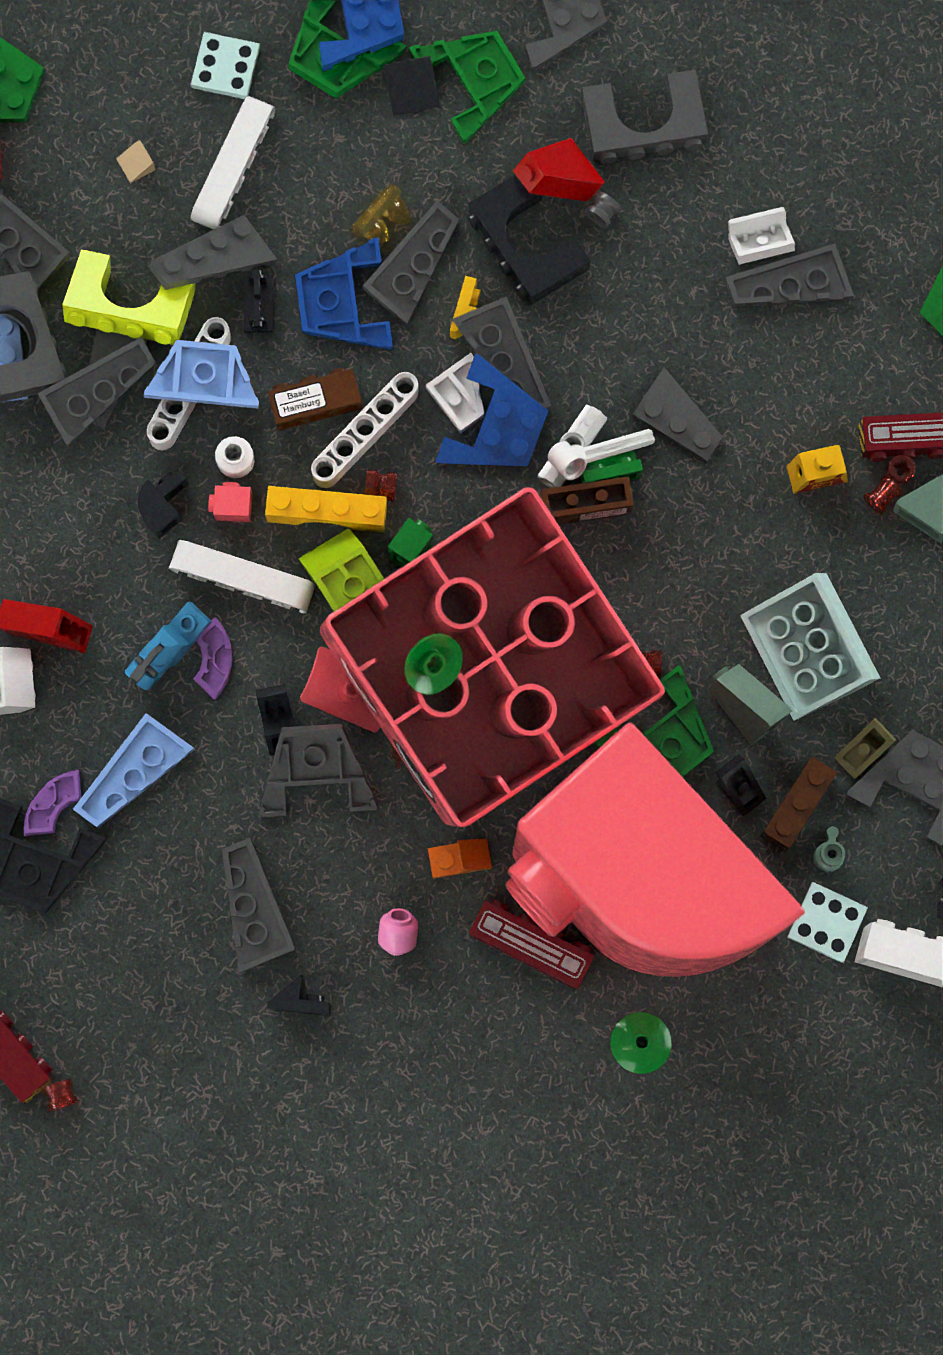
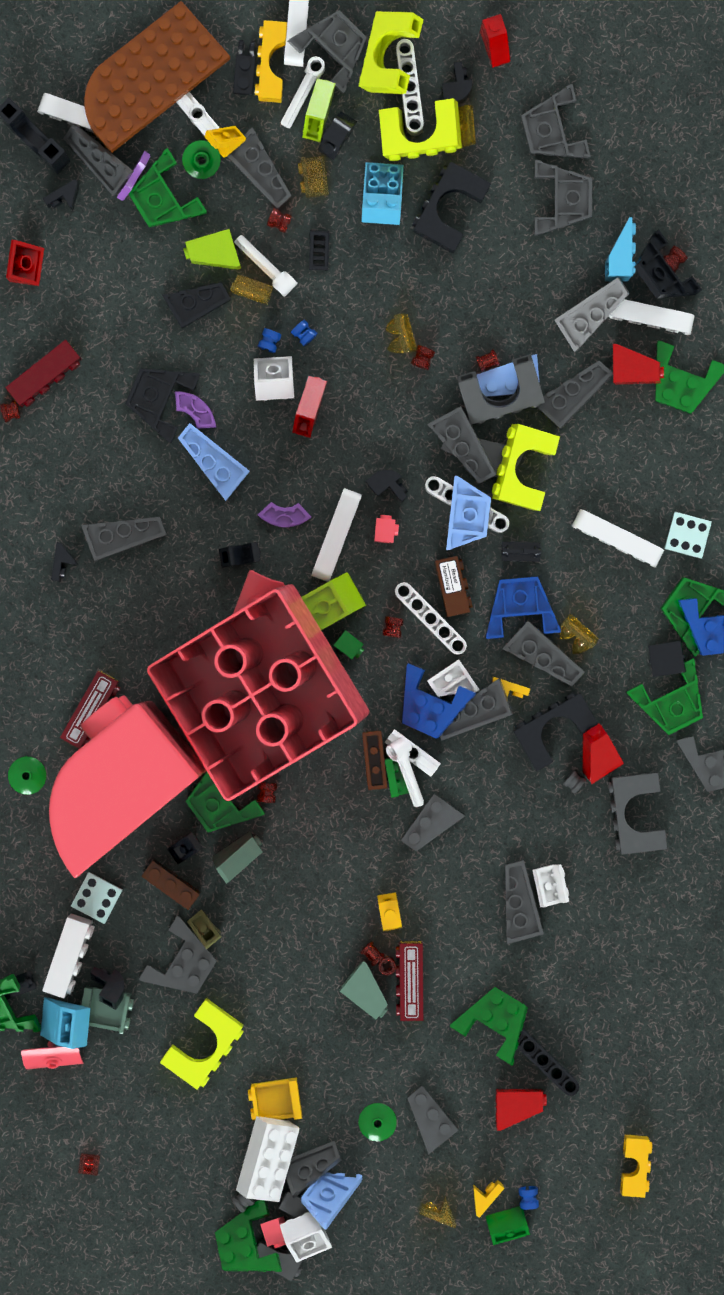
camera: 90 degrees right, 10 degrees up
(136, 162) = (622, 473): tan slope -> none
(168, 646) = (292, 486): dark azure plate -> none
(215, 254) = (554, 527): dark grey wing -> none
(237, 448) = (415, 525): white head -> none
(312, 758) = (213, 577): dark grey wing -> none
(345, 509) = (377, 591): yellow arch -> none
(398, 932) = (101, 626): bright pink head -> none
(440, 670) = (244, 656): green dish -> none
(459, 858) = (145, 658): orange slope -> none
(810, 645) = (273, 899): light aqua slope -> none
(830, 854) = (139, 901): sand green piece -> none

